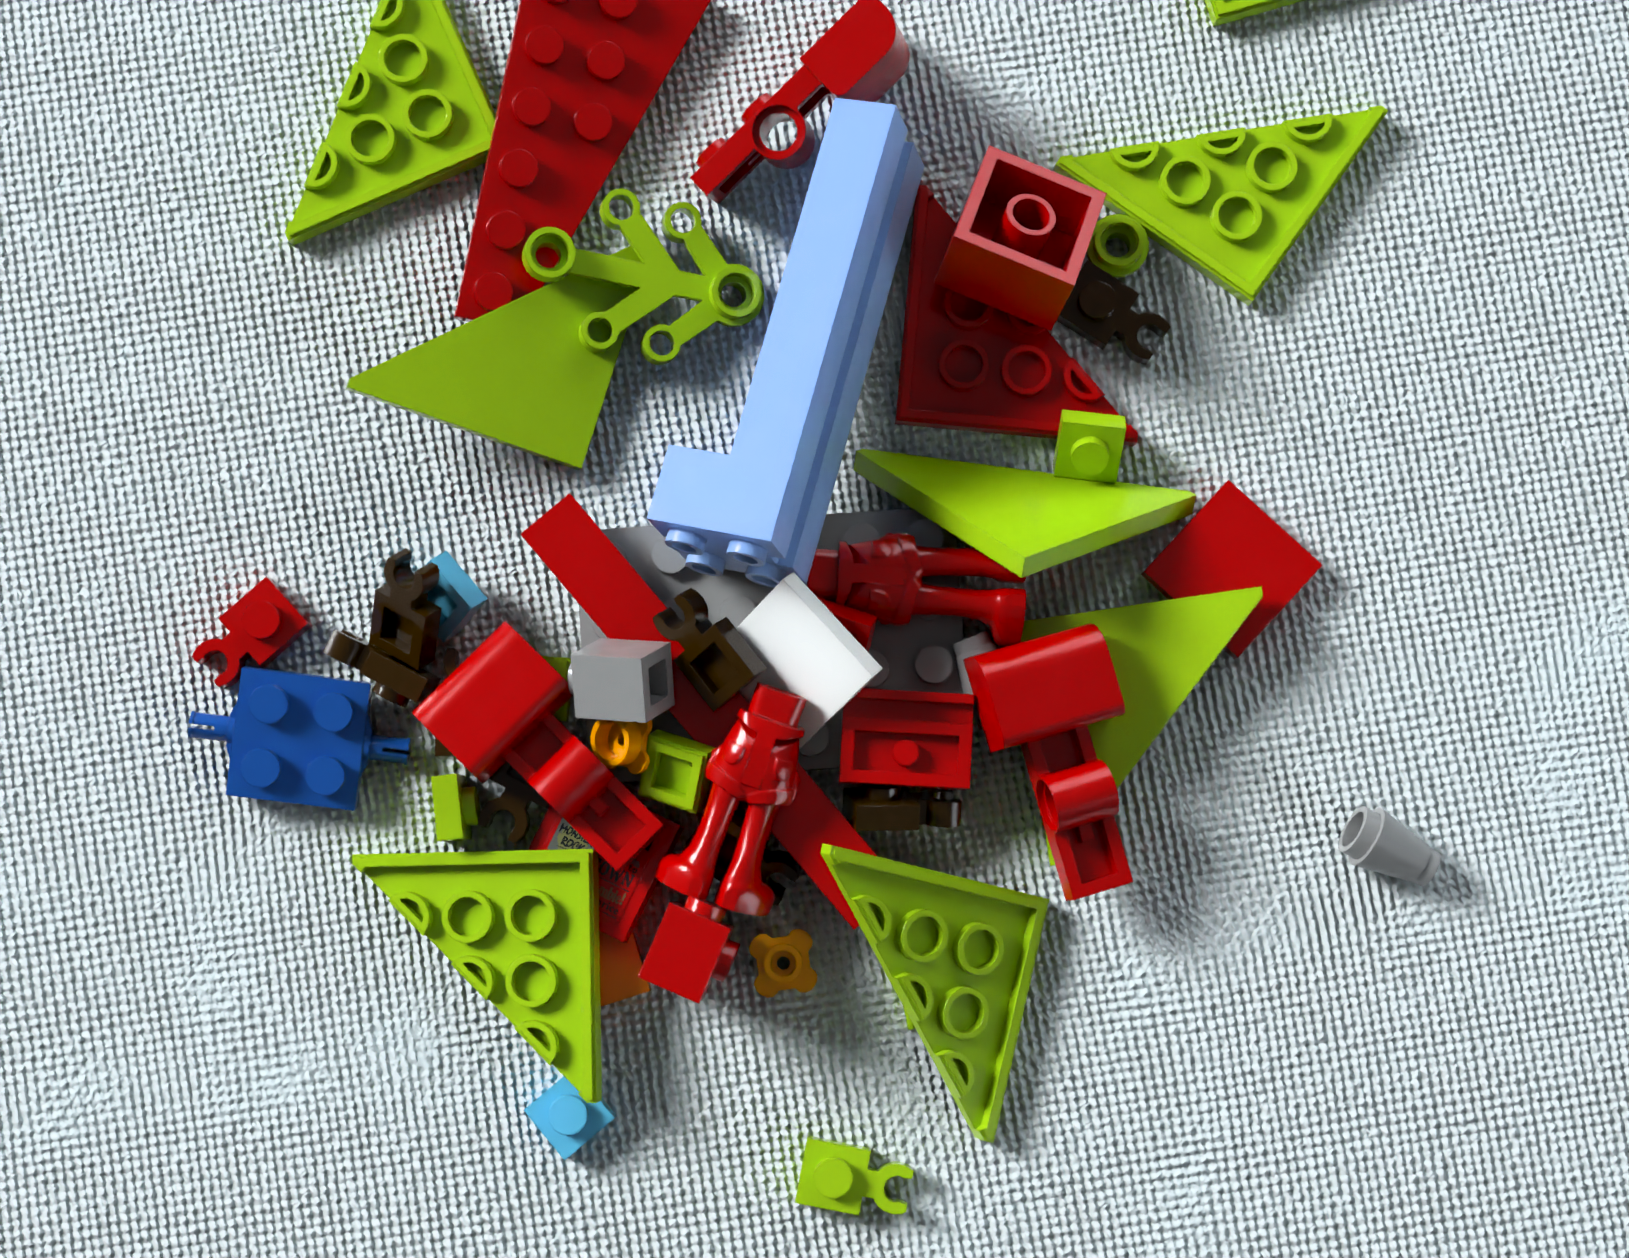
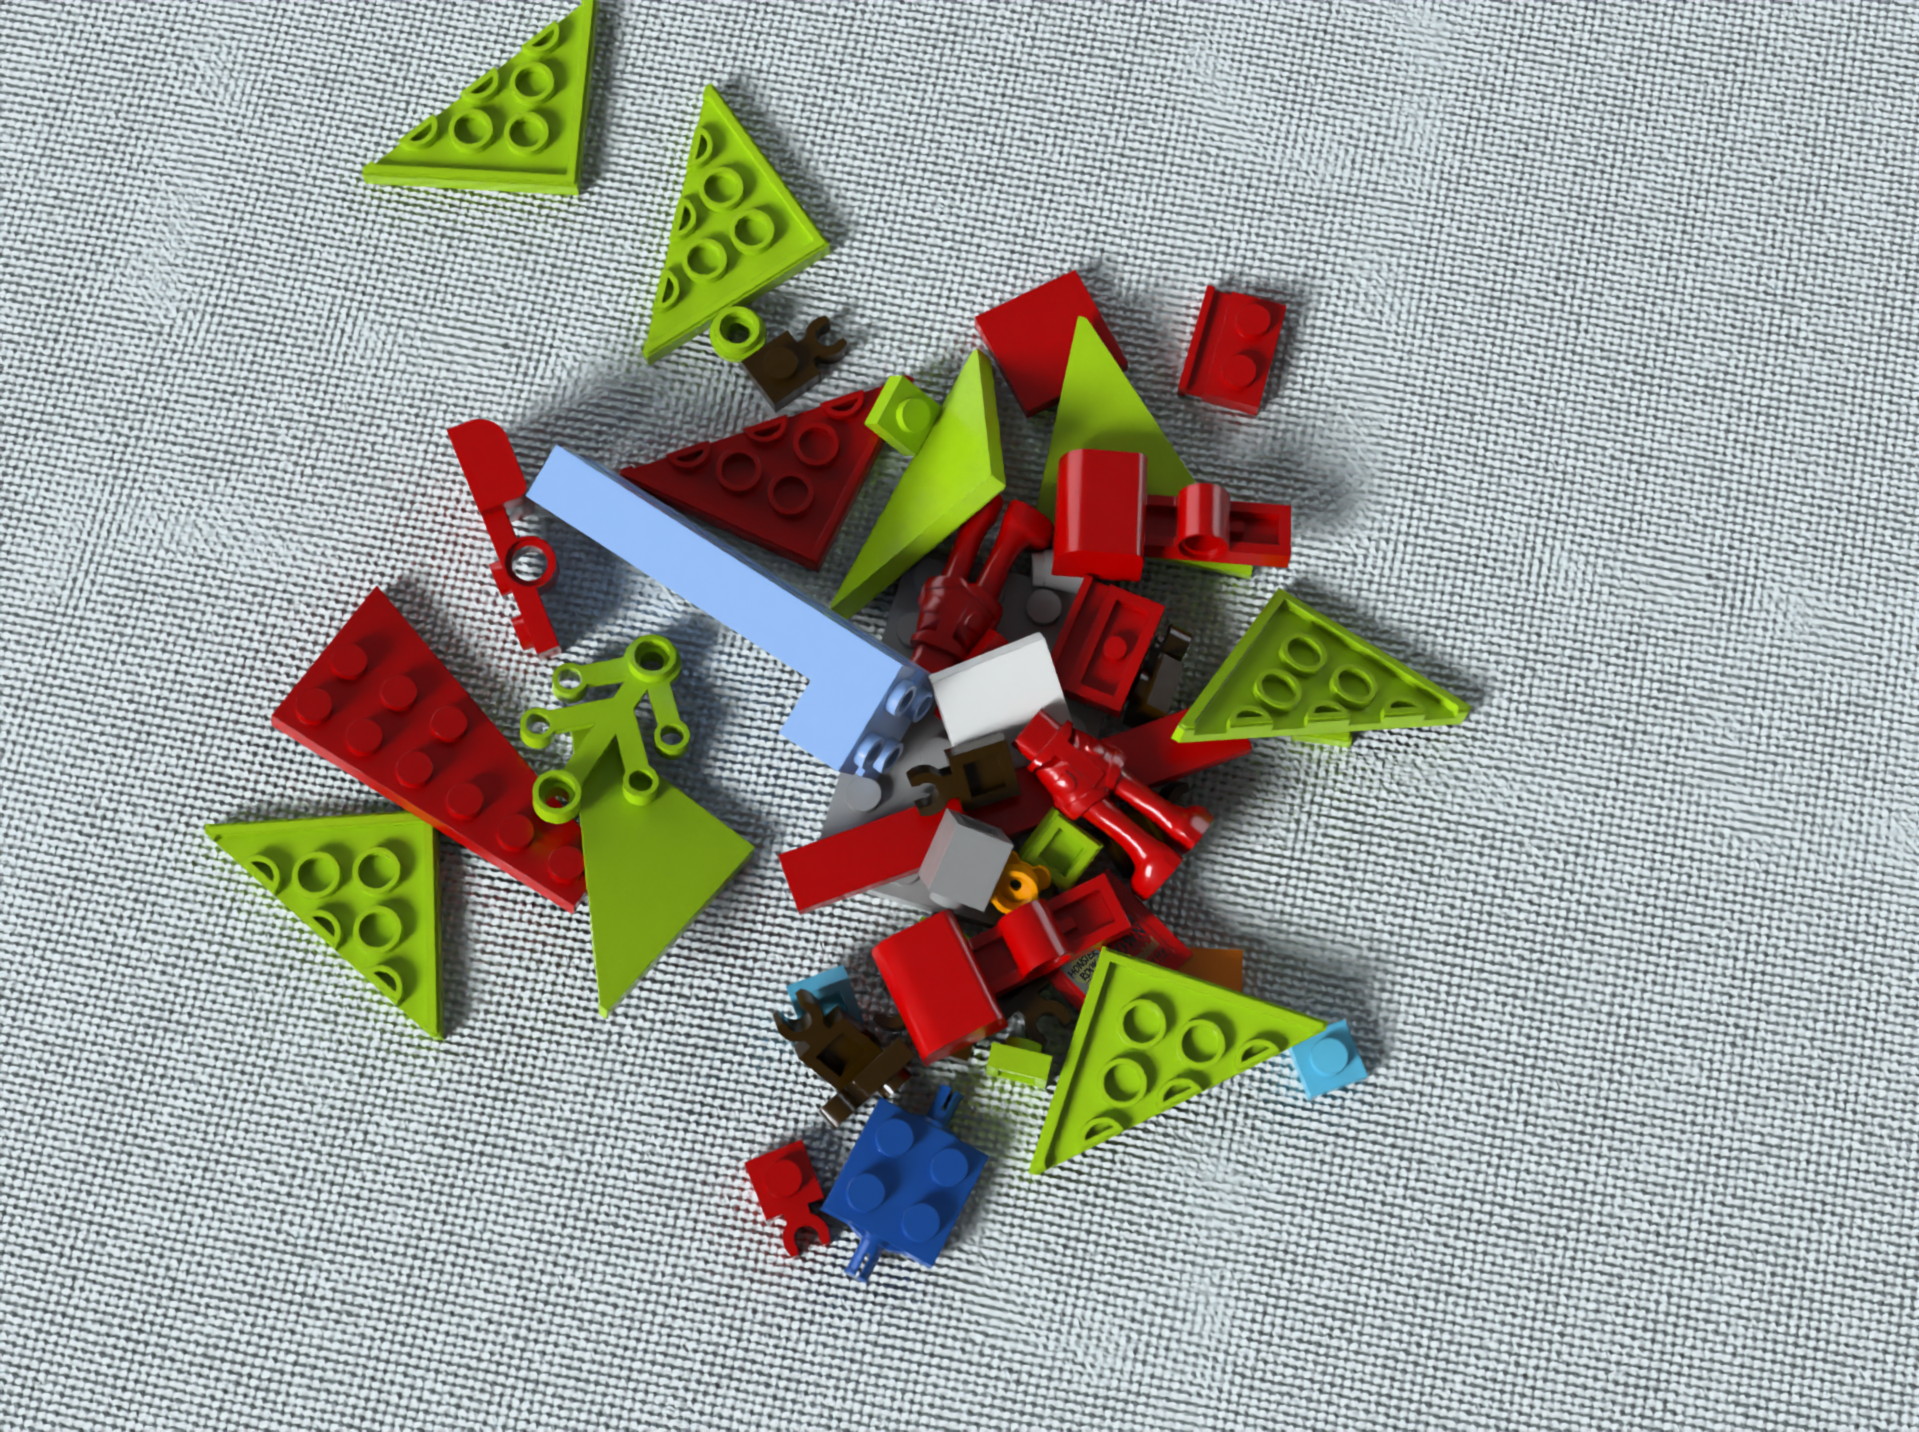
camera: 70 degrees left, 10 degrees down
(690, 949) = (1220, 890): red brick -> none
(770, 976) = (1245, 839): light orange plate -> none
(838, 1176) = (1459, 844): lime plate -> none
(1020, 238) = (705, 399): red brick -> none
(1297, 760) = (1231, 350): none -> red plate
(1386, 846) = (1329, 304): light grey cone -> none

